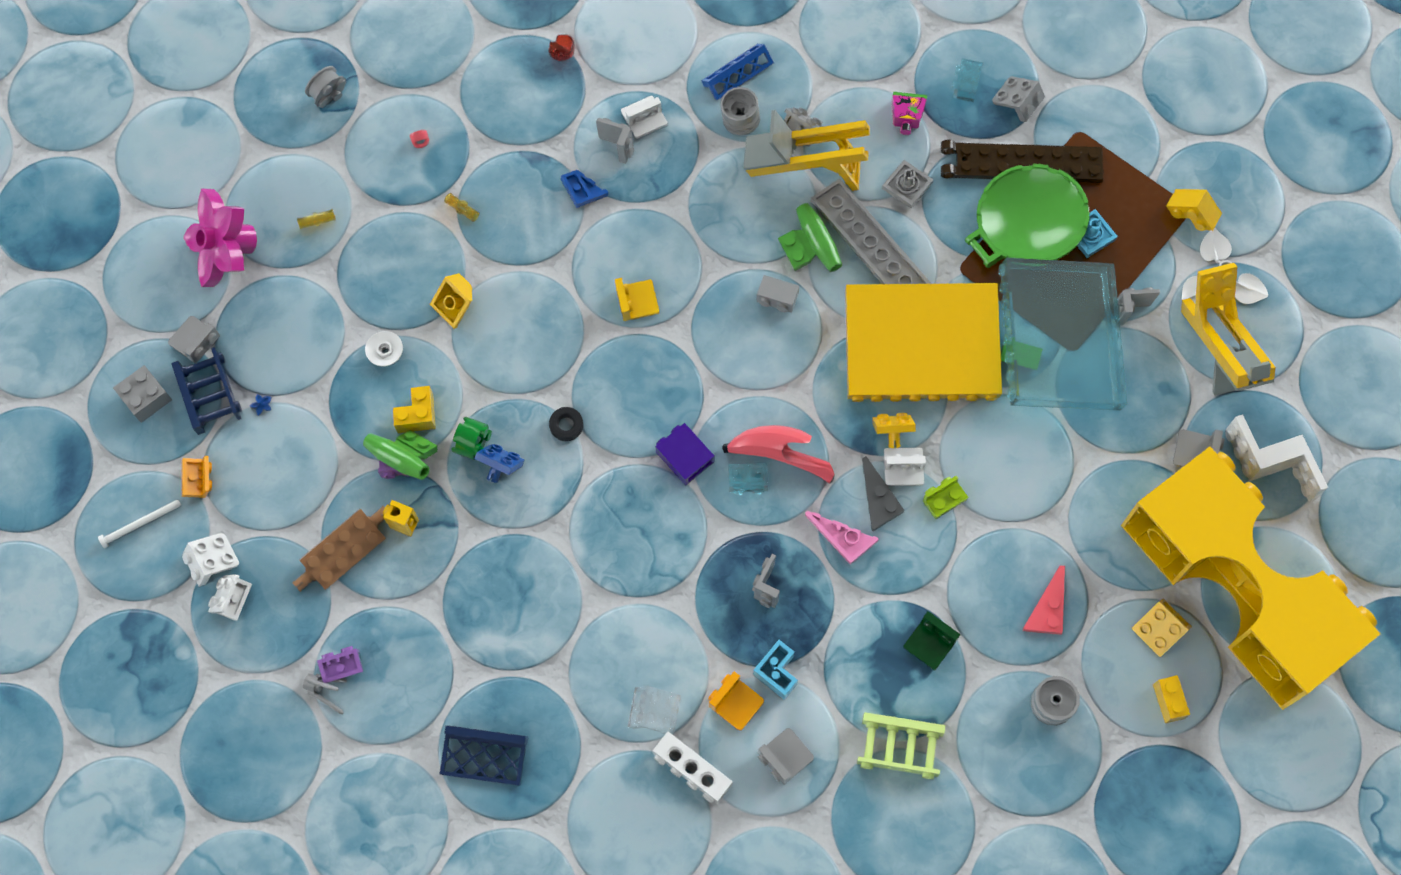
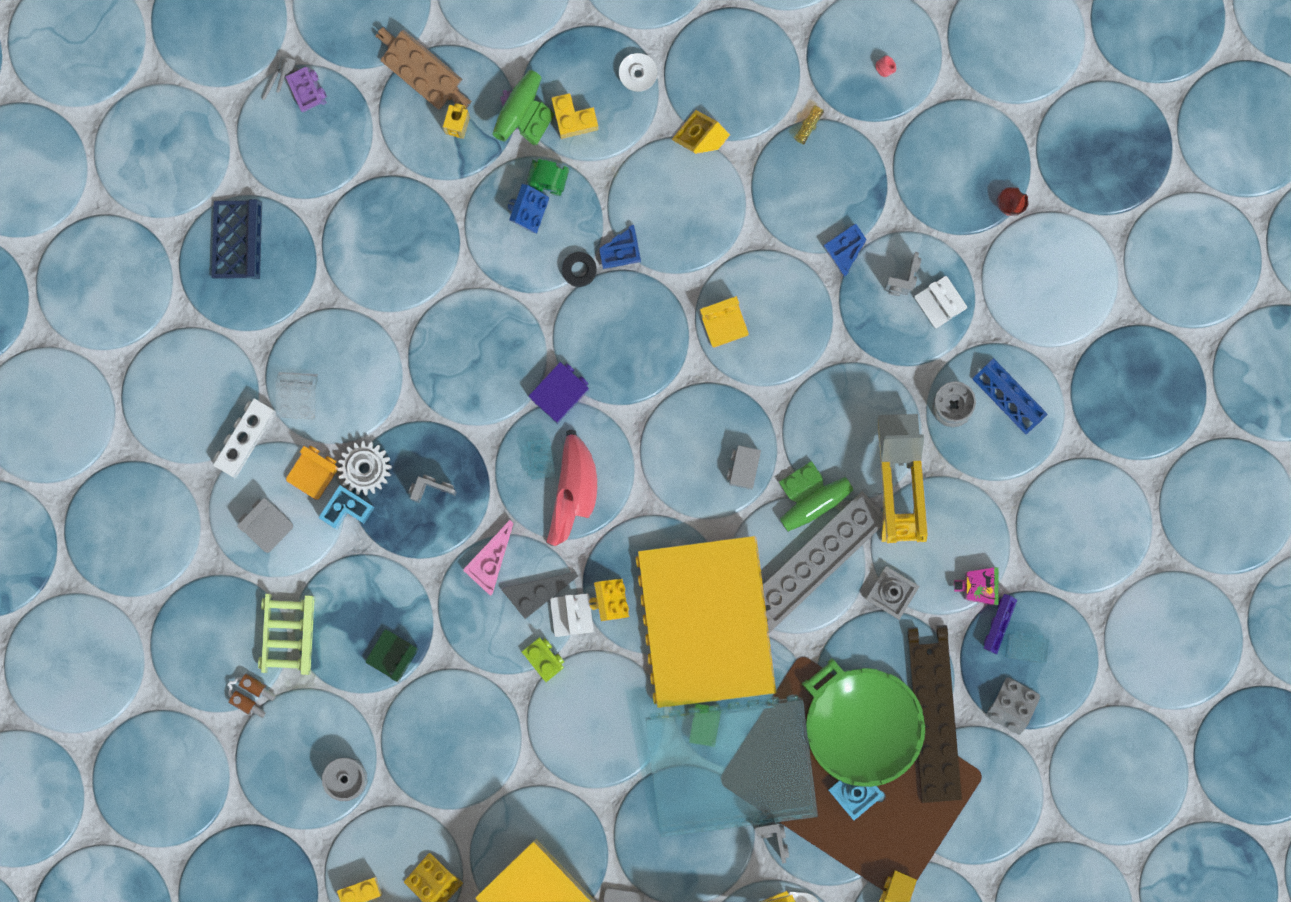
camera: 80 degrees right, 15 degrees up
(553, 382) = (621, 250): none -> blue wing
(737, 636) = (352, 465): none -> white gear
(798, 120) = (949, 474): light grey bracket -> none
(944, 100) = (999, 624): none -> dark purple plate
(967, 799) = (254, 687): none -> dark orange piece
(1048, 613) = (437, 770): coral wing -> none

